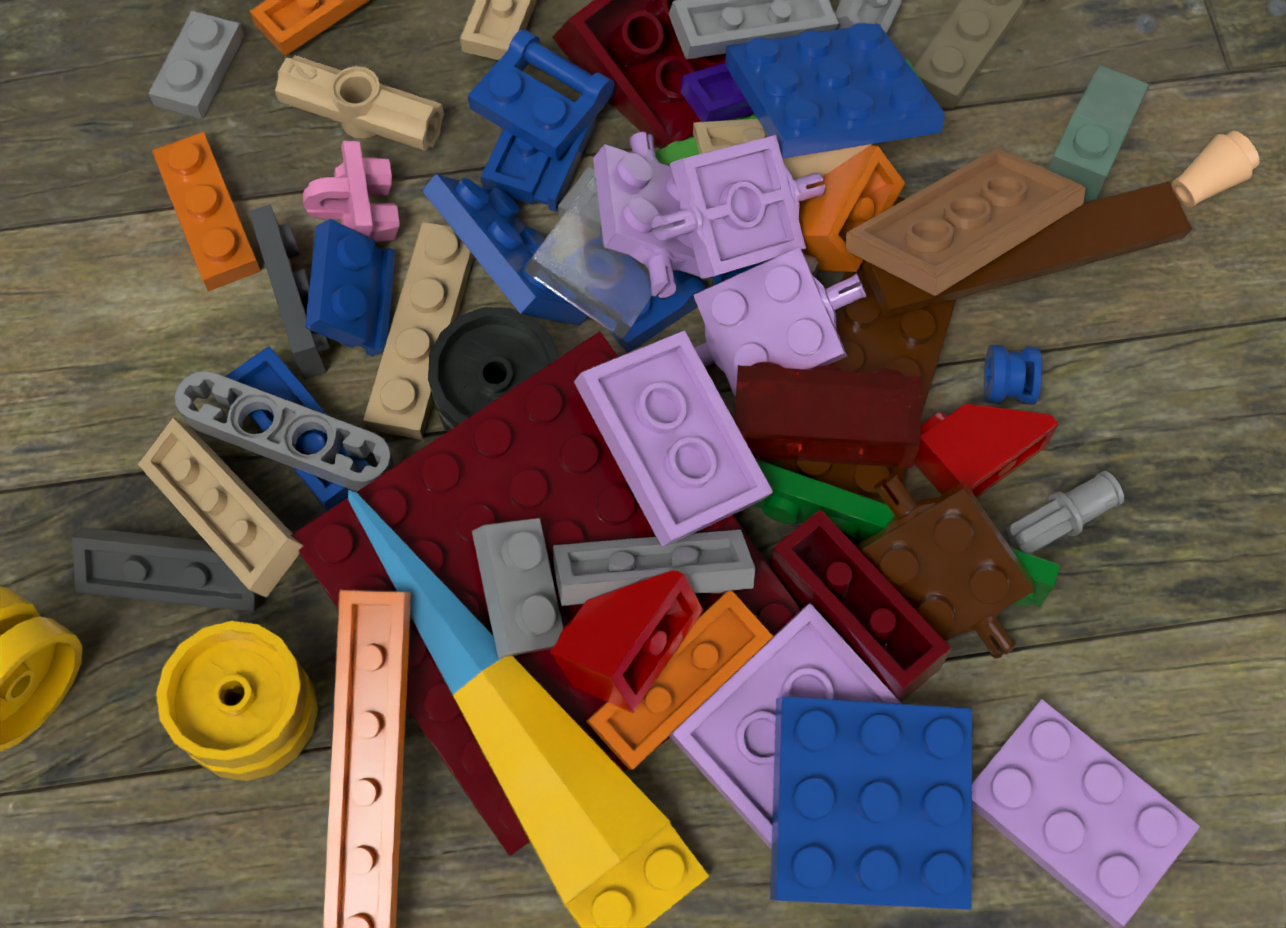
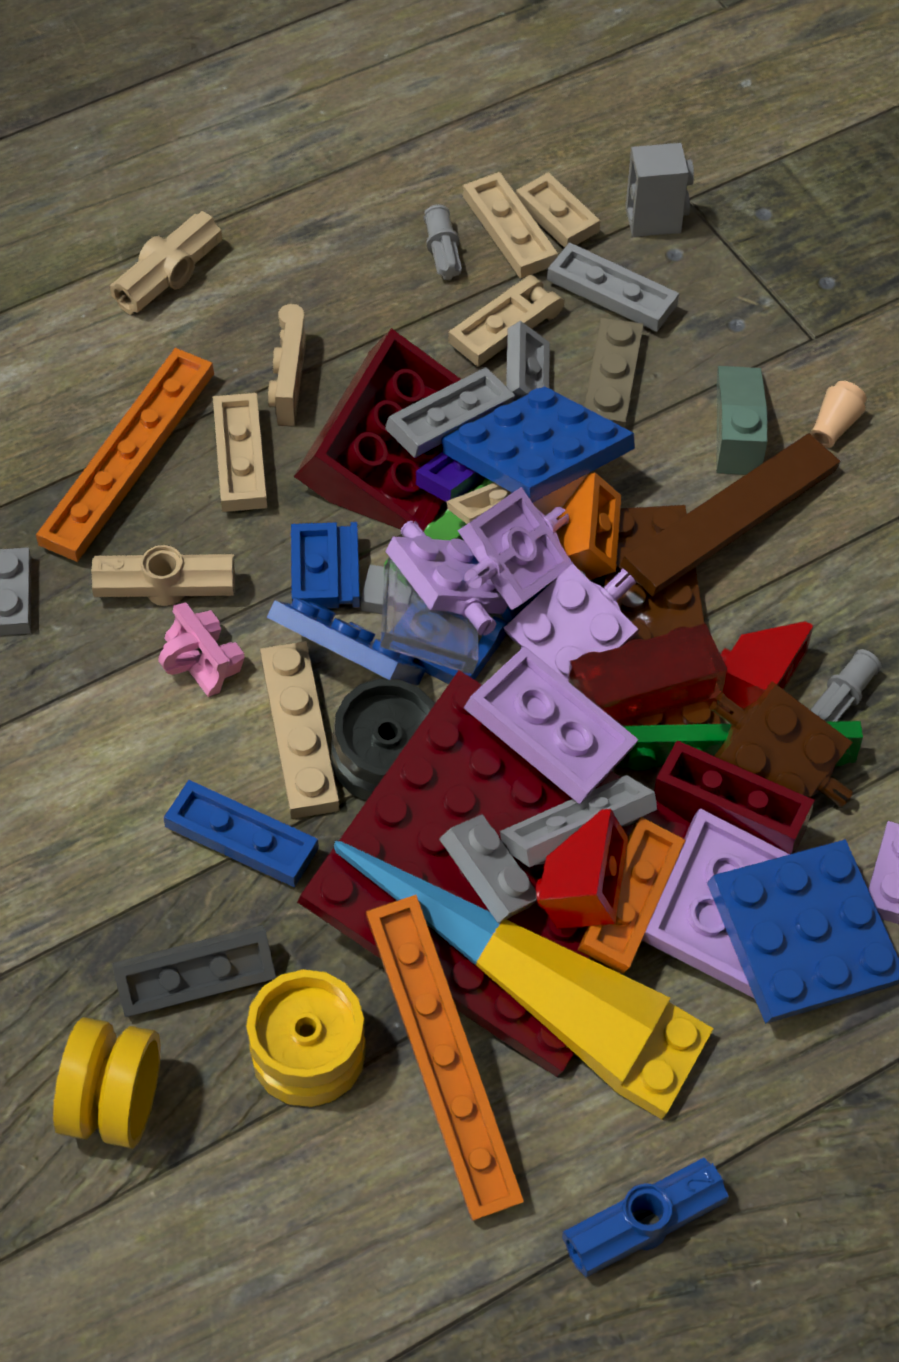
camera: 25 degrees left, 10 degrees down
(206, 211) = (75, 700): orange plate -> none
(221, 507) = (220, 902): tan plate -> none
(281, 437) = (239, 825): light grey beam -> none
(290, 289) = (181, 734): dark grey plate -> none
(350, 288) = (232, 714): blue plate -> none
(532, 108) = (307, 533): blue plate -> none
(964, 220) = (679, 506): medium nougat tile -> none
(1012, 374) = (762, 606): blue wheel -> none

